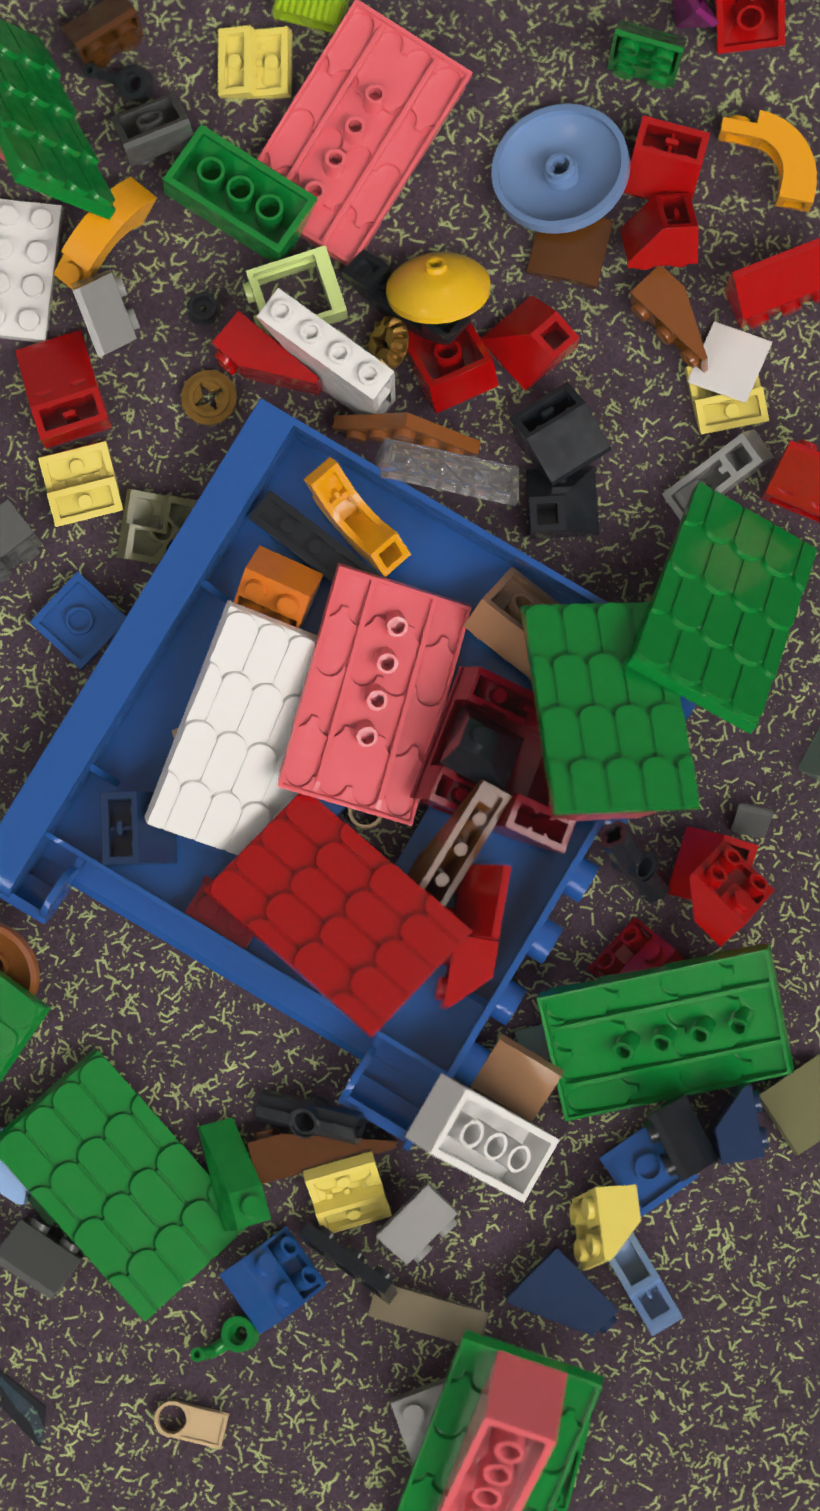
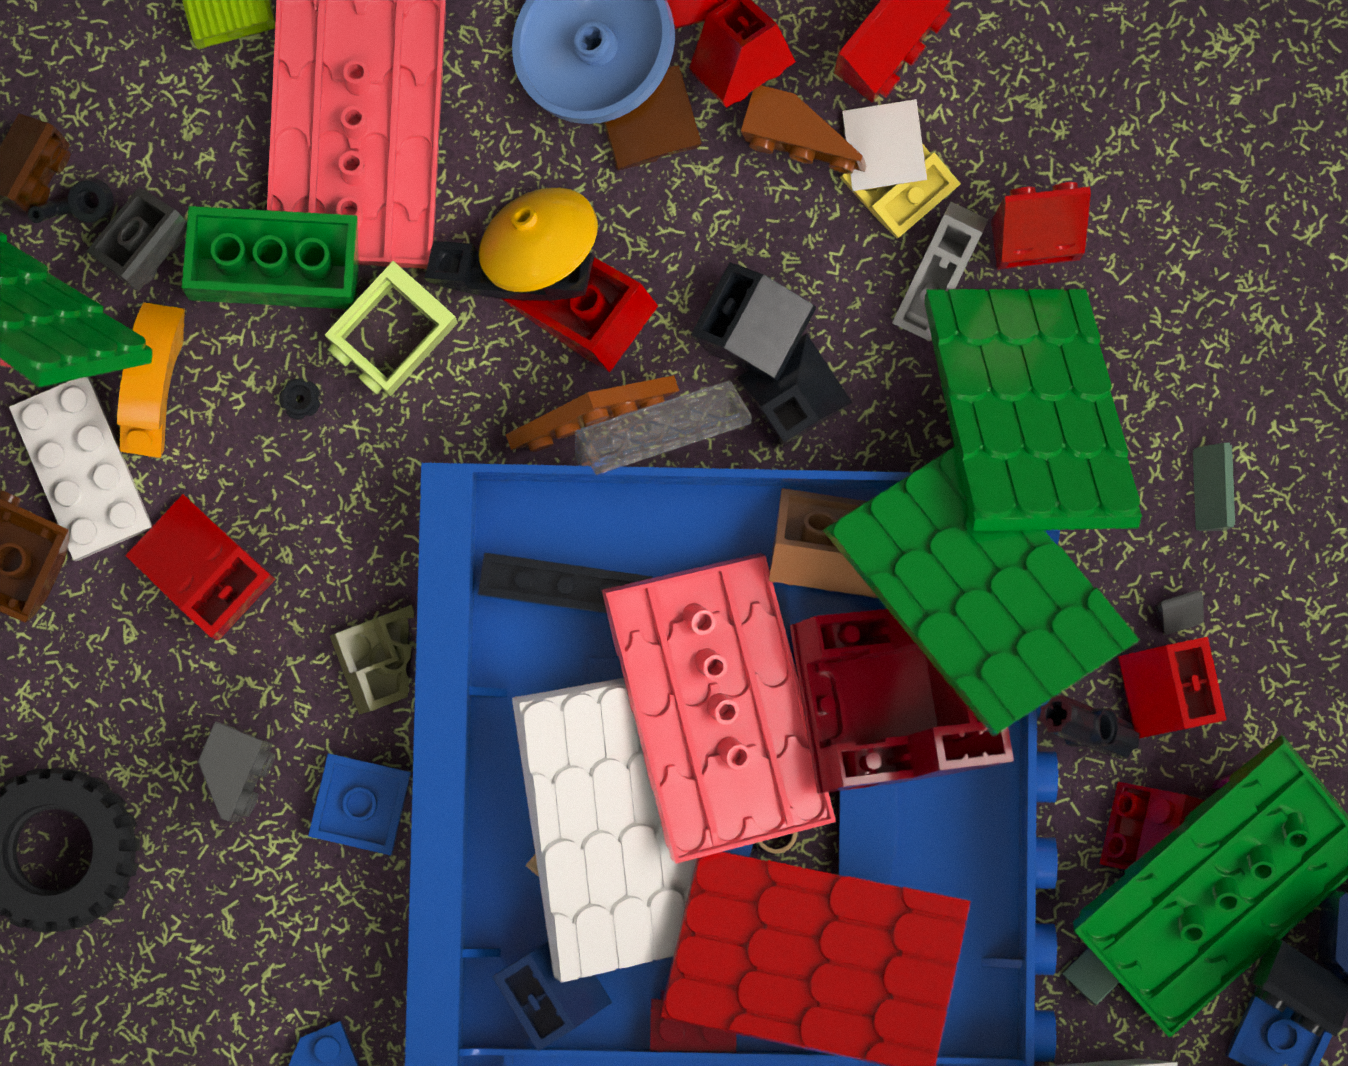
camera: 35 degrees left, 0 degrees up
(81, 483) = (276, 657): light yellow slope -> none
(105, 312) = (201, 463): light grey slope -> none
(213, 382) = (355, 470): pearl gold gear -> none
(254, 63) = (204, 107): light yellow slope -> none
(257, 357) = (388, 418): red slope -> none
(278, 587) = (551, 651): orange slope -> none
(343, 366) = (469, 378): white slope -> none
(354, 519) = (593, 533): light orange arch -> none
(395, 334) = (525, 316): pearl gold gear -> none
(459, 841) = (896, 820): reddish brown slope -> none
(466, 970) = (985, 945): red slope -> none
(481, 749) = (866, 702): black slope -> none
(482, 899) = (955, 860): red slope -> none
(517, 1078) = (1097, 1021): medium nougat slope -> none
(531, 341) = (664, 240): red slope -> none
(726, 893) = (1206, 707): red slope -> none

